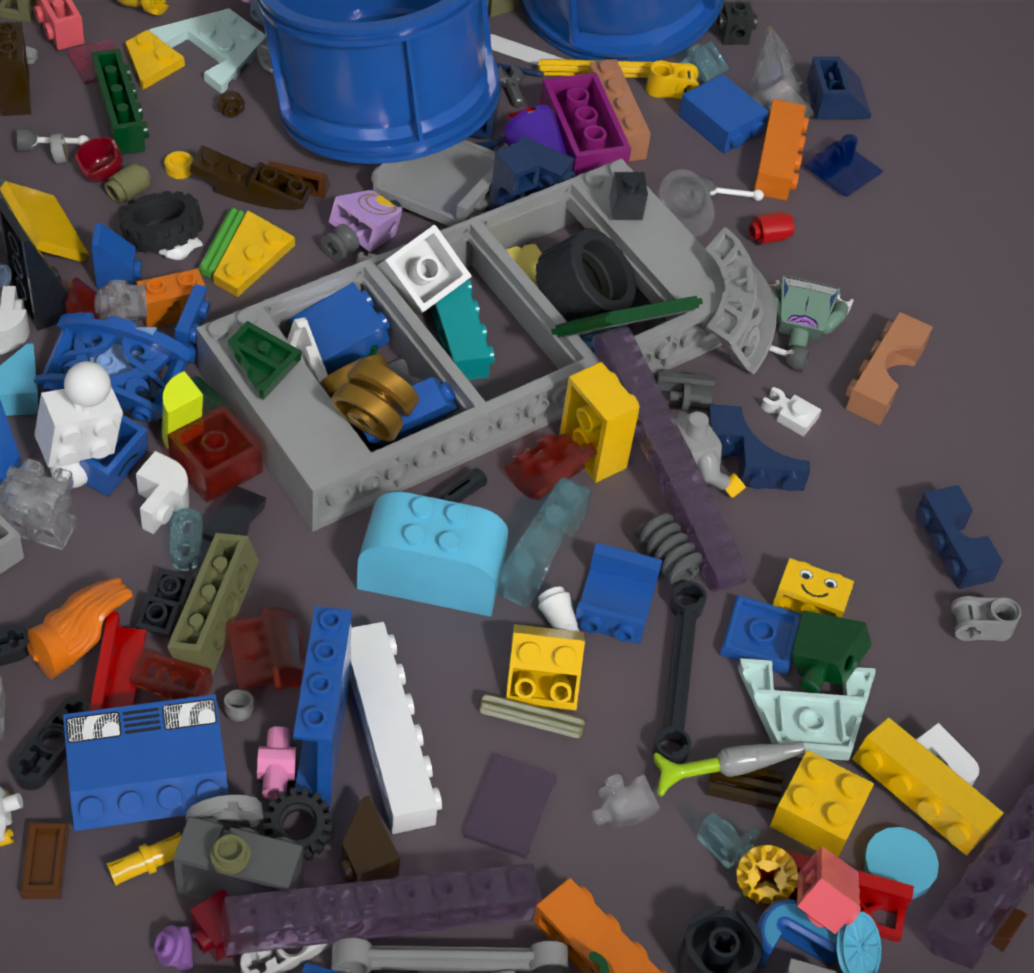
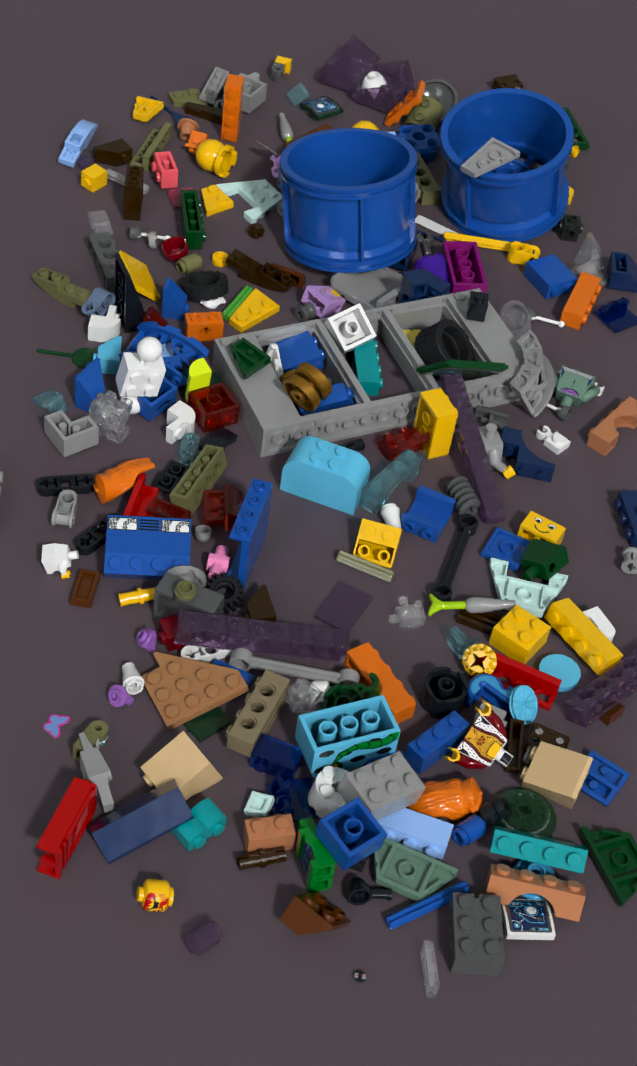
camera: 10 degrees right, 5 degrees down
(121, 301) = (176, 319): clear brick -> none
(193, 316) = (214, 332): blue plate -> none
(390, 730) = (284, 558): white brick -> none
(623, 106) = (489, 264): nougat arch -> none
(707, 60) = (547, 245): clear light blue bracket -> none
(771, 228) = (564, 342): red brick -> none
(828, 891) = (511, 670): coral brick -> none

